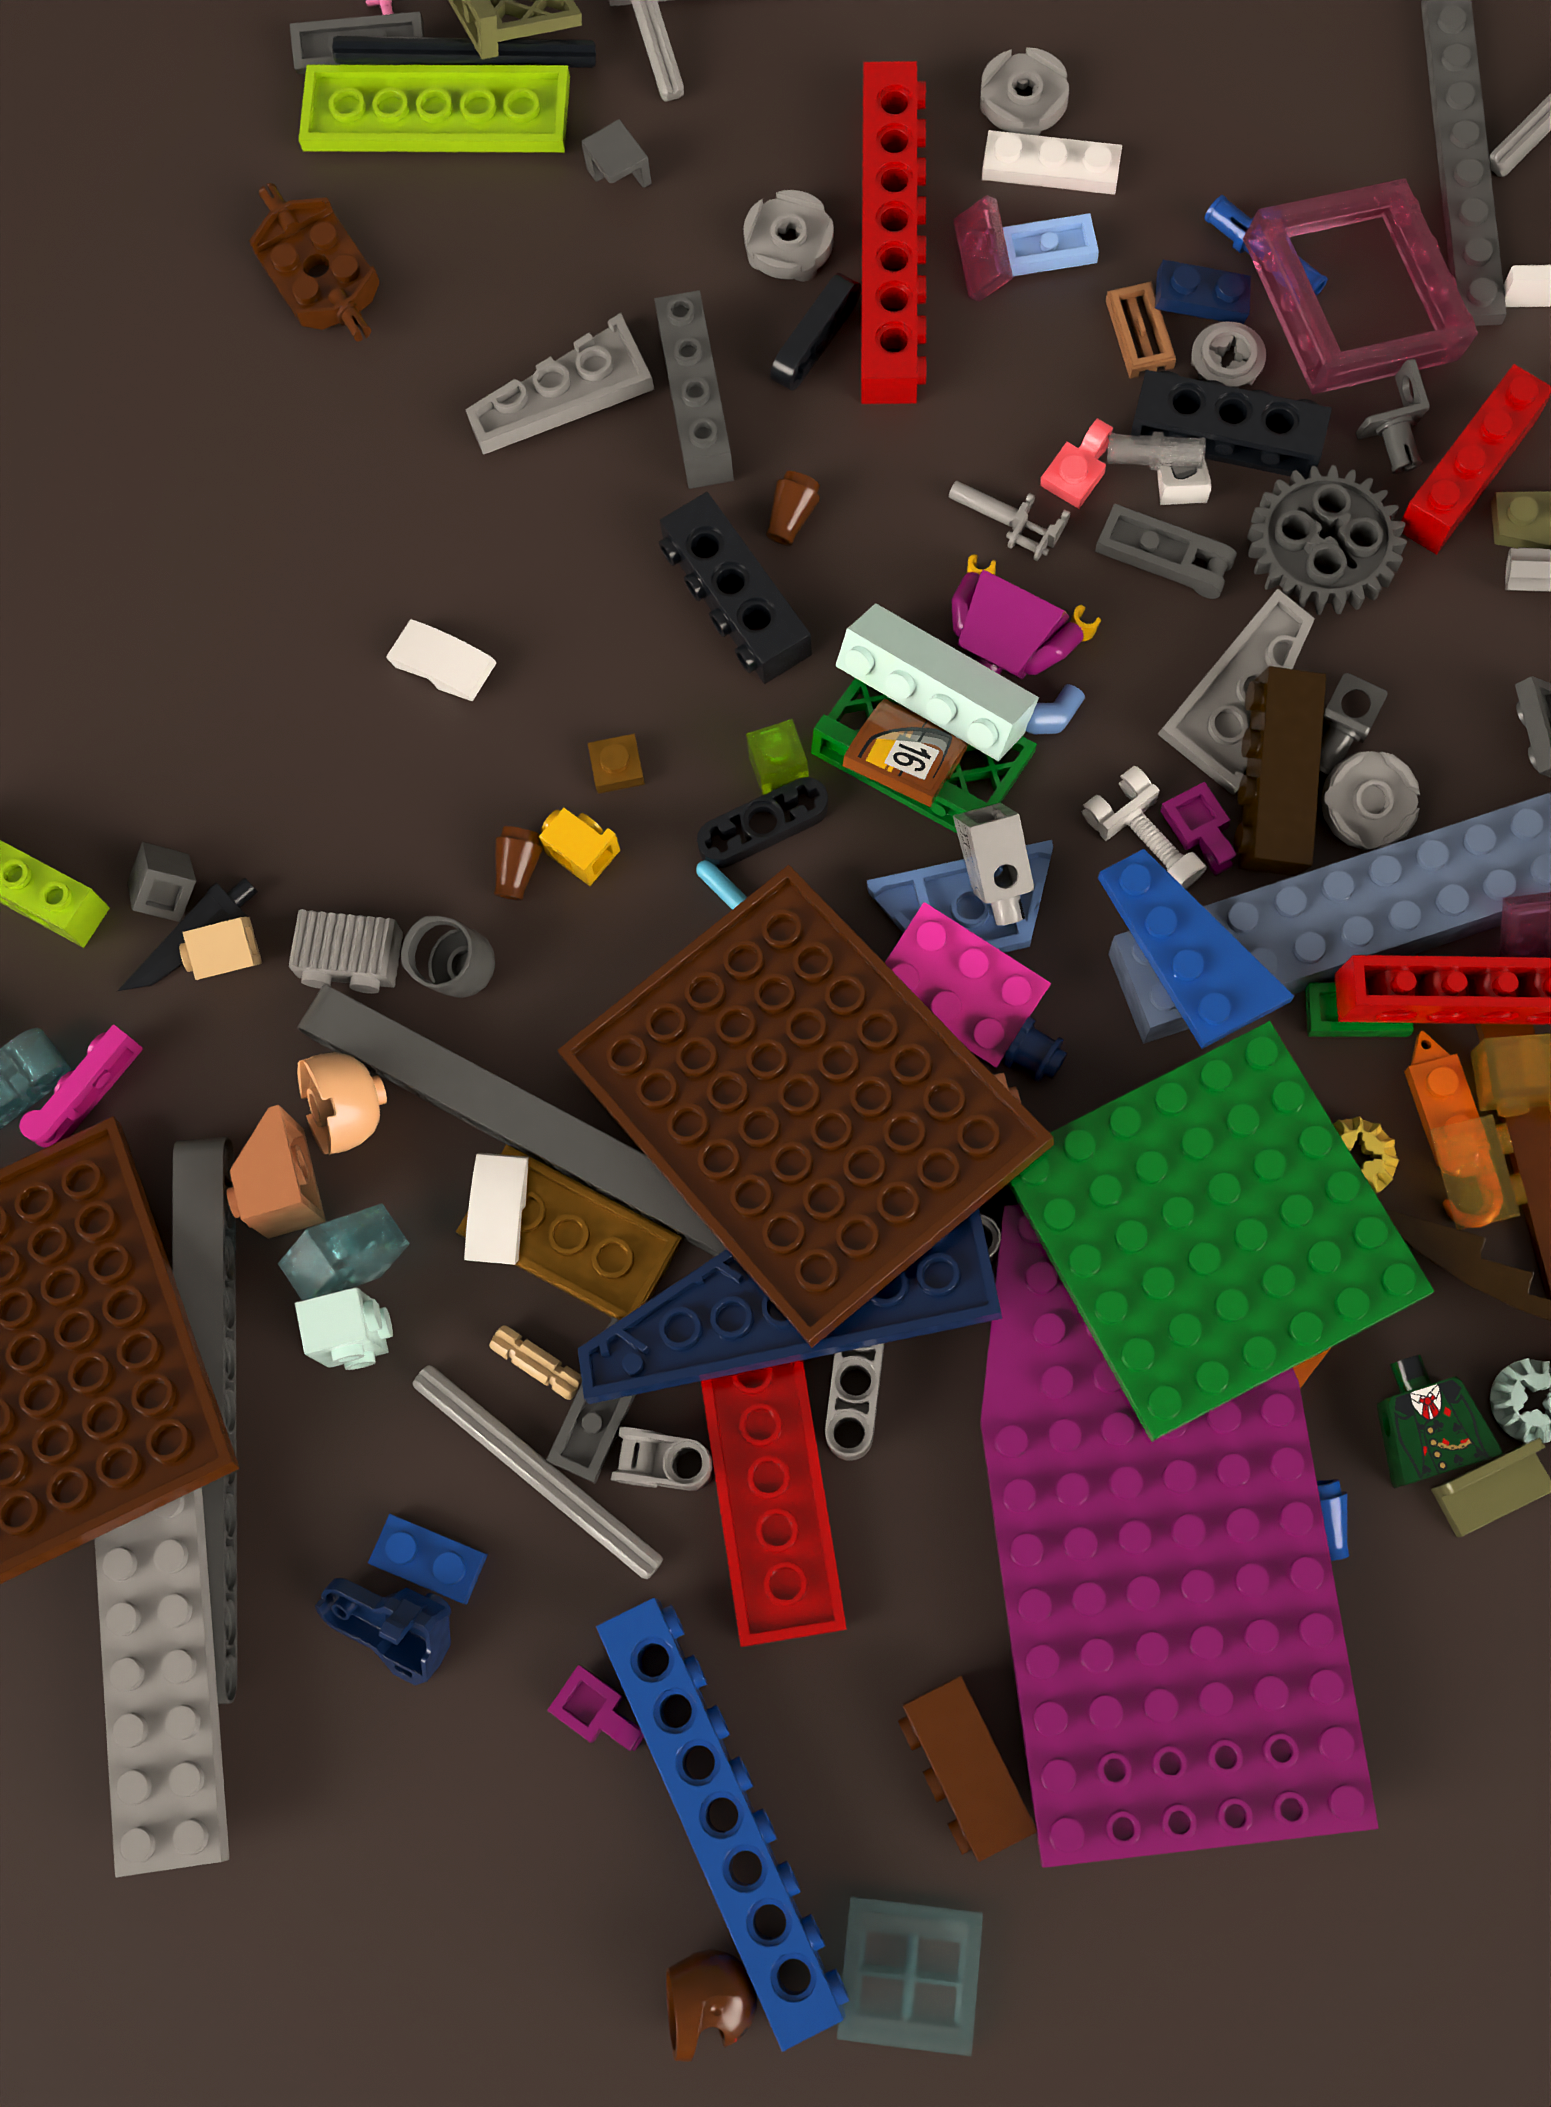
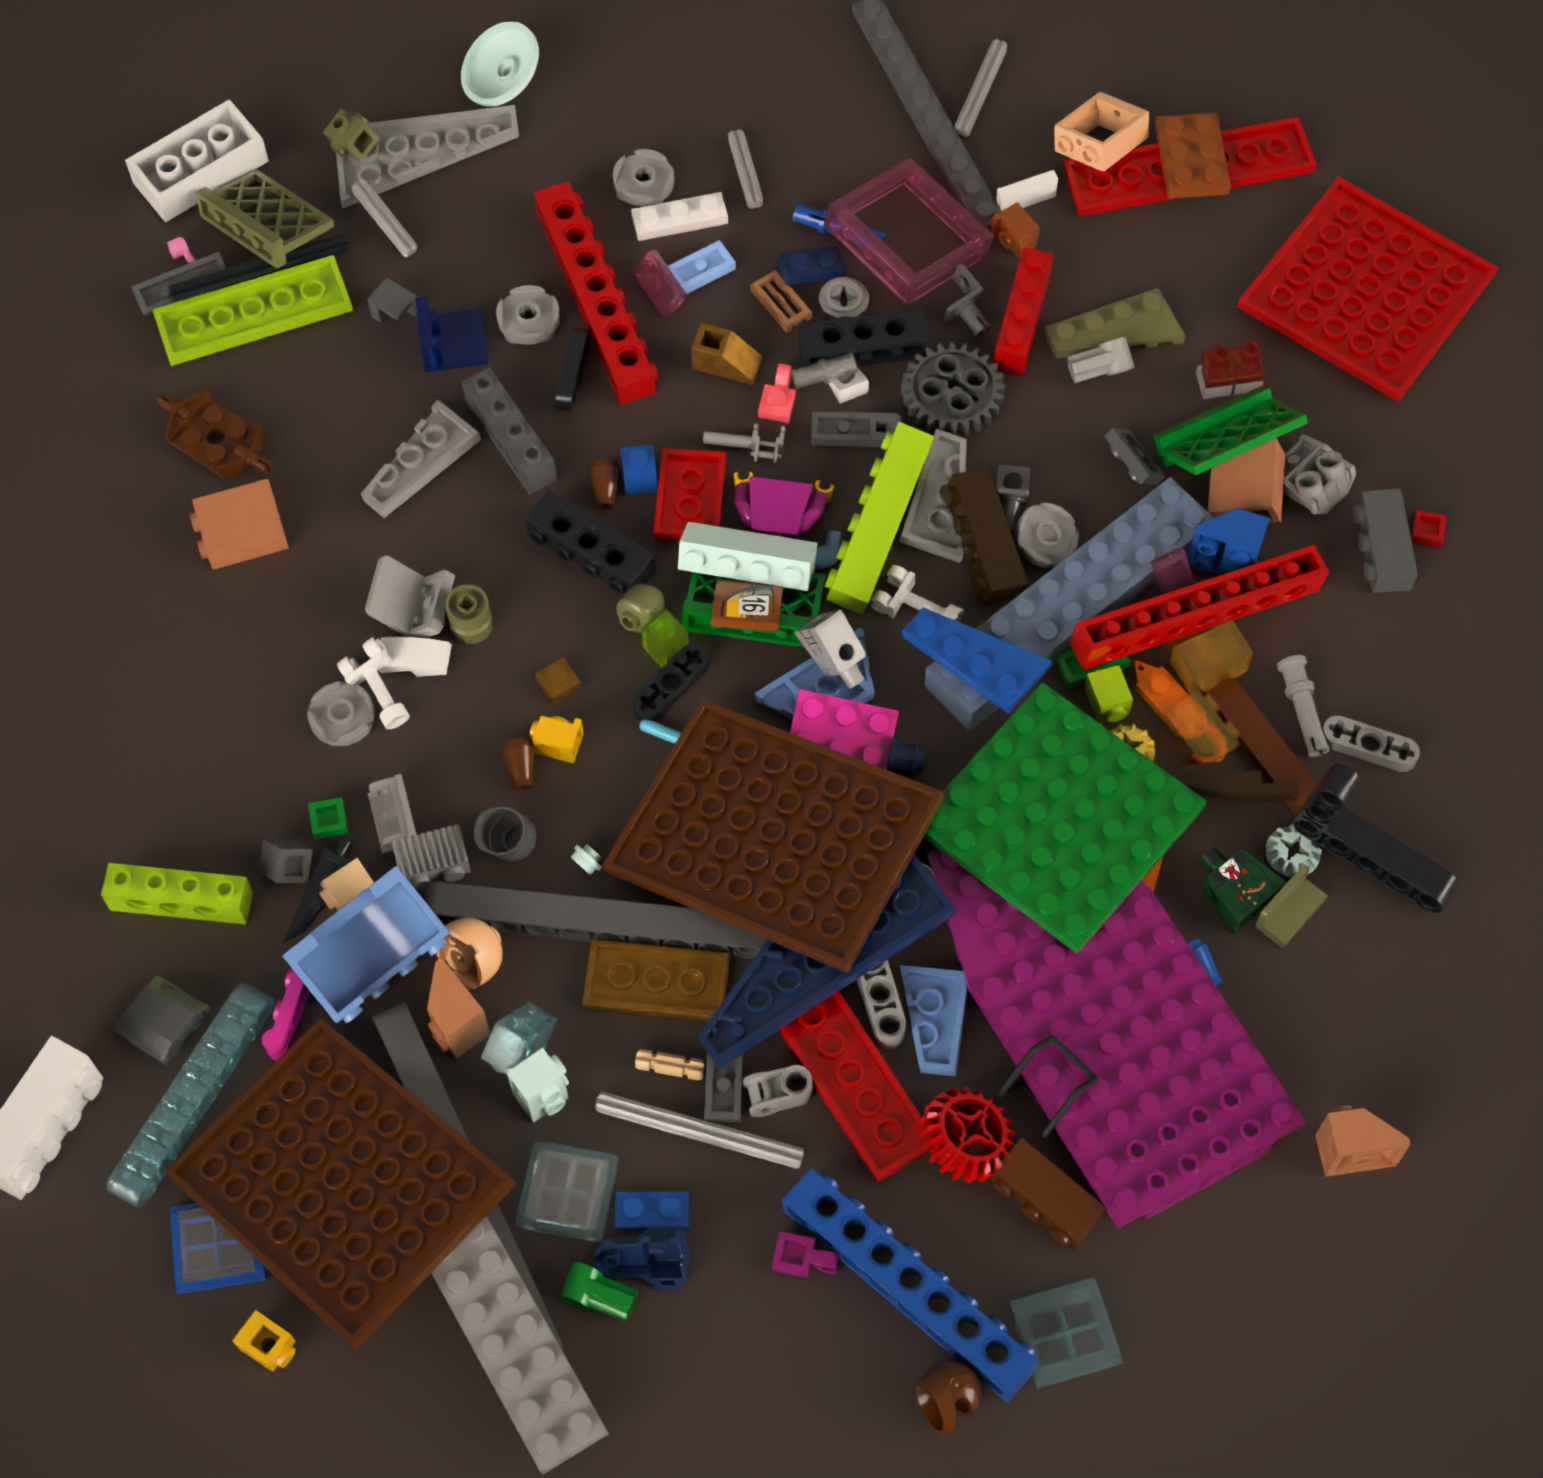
camera: 30 degrees left, 10 degrees down
(188, 1049) = (366, 945): none -> medium blue cylinder
(239, 844) = (328, 818): none -> green plate
(294, 397) = (238, 524): none -> nougat brick
(297, 1636) = (589, 1289): none -> green piece
(319, 705) = (341, 714): none -> light grey tile
(325, 867) = (391, 812): none -> light grey hinge
(330, 1484) = (567, 1191): none -> clear piece
(357, 657) = (392, 714): none -> white bar
(461, 577) = (407, 599): none -> light grey bracket
(496, 1208) = (604, 976): white slope -> none
(532, 628) = (469, 614): none -> olive wheel
(546, 1029) = (587, 858): none -> light aqua plate
(670, 231) = (450, 338): none -> clear blue bracket
(764, 700) = (640, 606): none -> olive head
(843, 505) = (639, 470): none -> blue brick
(900, 559) = (688, 491): none -> red plate
(915, 1670) = (946, 1127): none -> red gear
(923, 1442) = (937, 1016): none -> medium blue wing
(996, 1583) = (1011, 1085): none -> black piece
(1027, 380) = (724, 354): none -> pearl gold slope
(1144, 690) = (879, 519): none -> lime brick
(1170, 123) = (745, 169): none -> light grey axle
(1199, 820) = (947, 583): magenta plate -> none
(1361, 1068) = (1108, 694): none -> lime brick
(1441, 1886) = (1358, 1142): none -> nougat slope
(1514, 333) = (1015, 229): none -> dark orange brick

